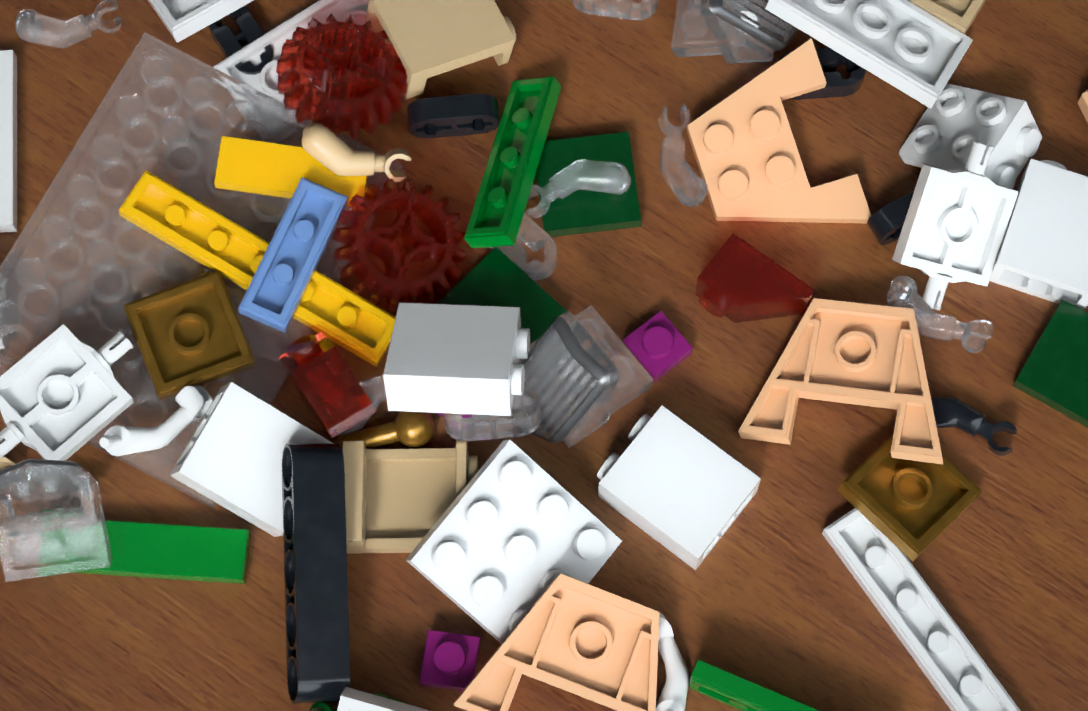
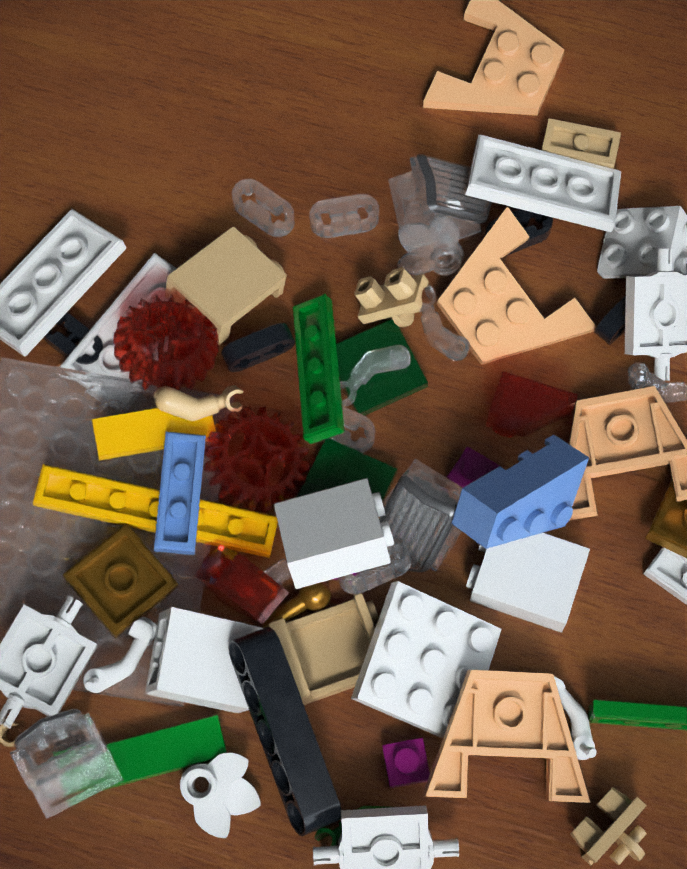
camera: 20 degrees left, 0 degrees up
(224, 626) = (226, 794): none -> white plate
(632, 109) = (394, 300): none -> tan hips
(697, 390) = (524, 498): none -> medium blue wedge
(698, 56) = (429, 246): none -> clear plate

